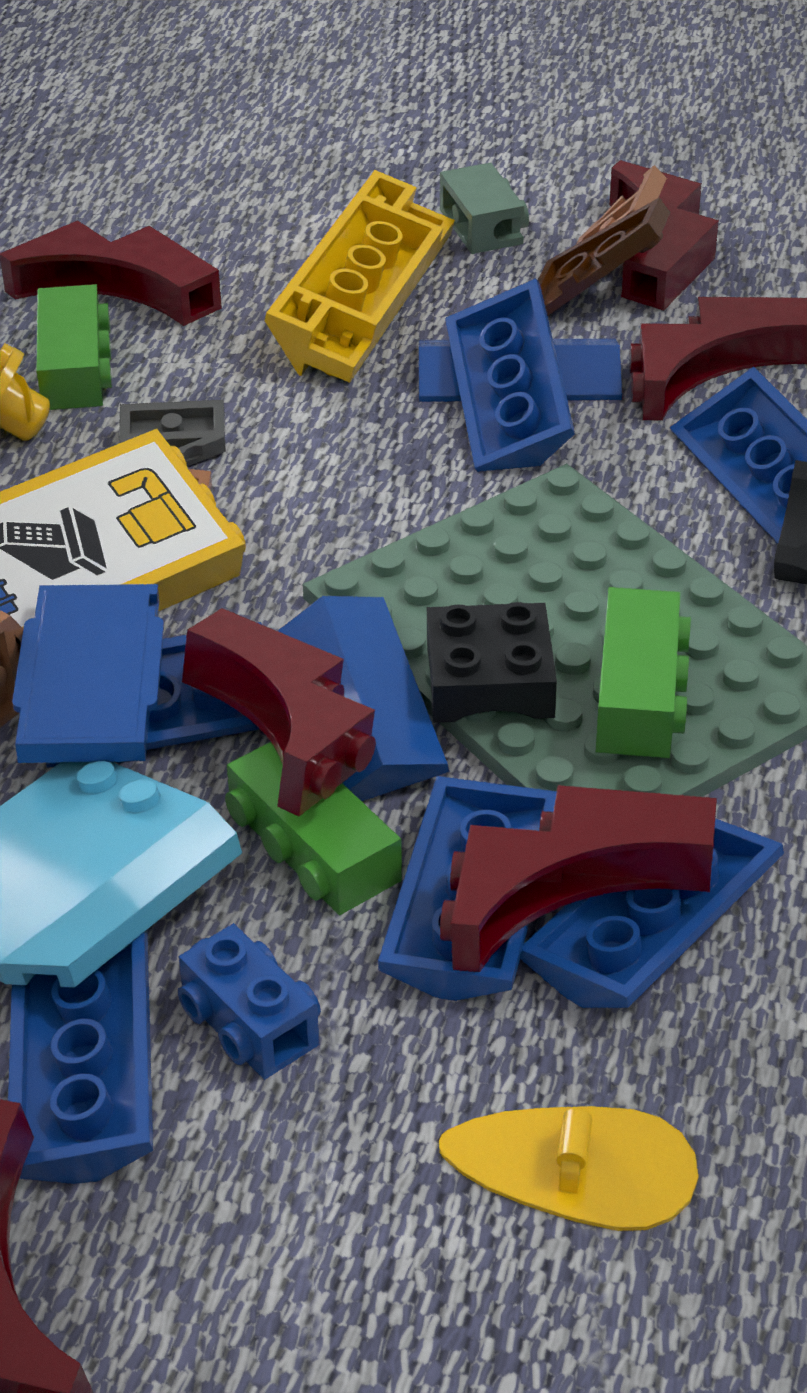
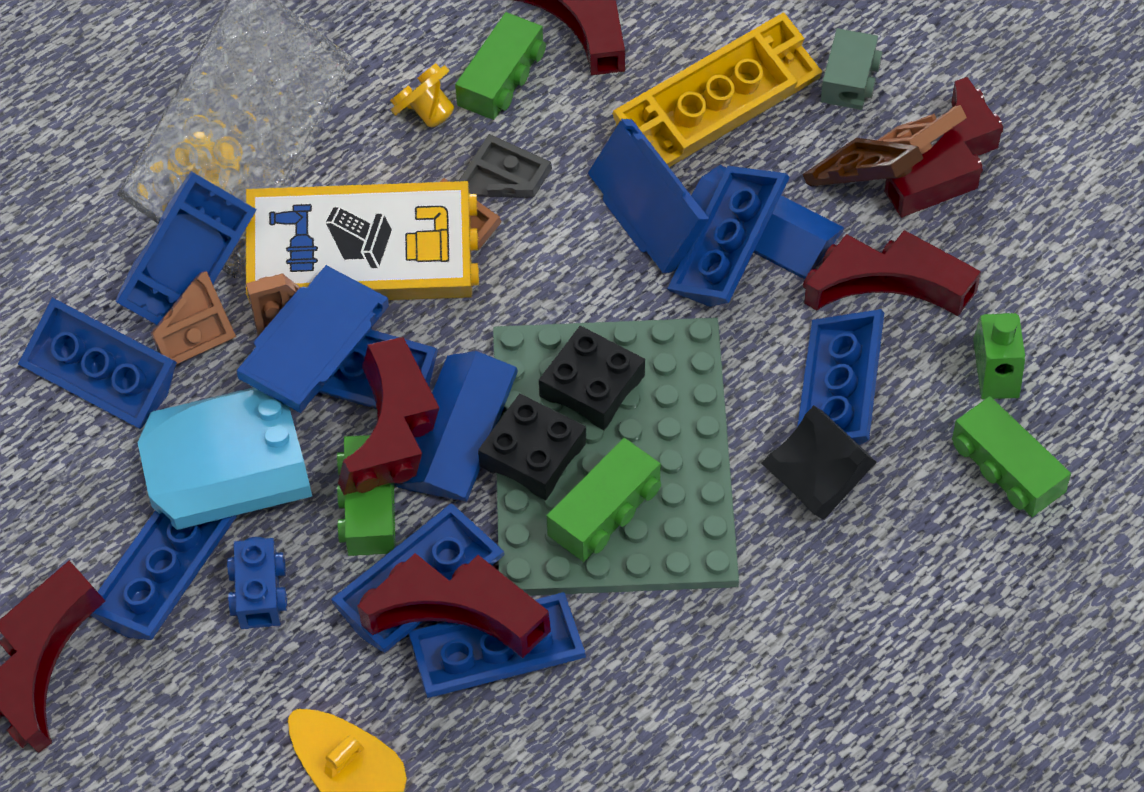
camera: 35 degrees right, 15 degrees up
(378, 379) = (647, 197): none -> blue piece
(492, 558) = (592, 376): none -> black brick

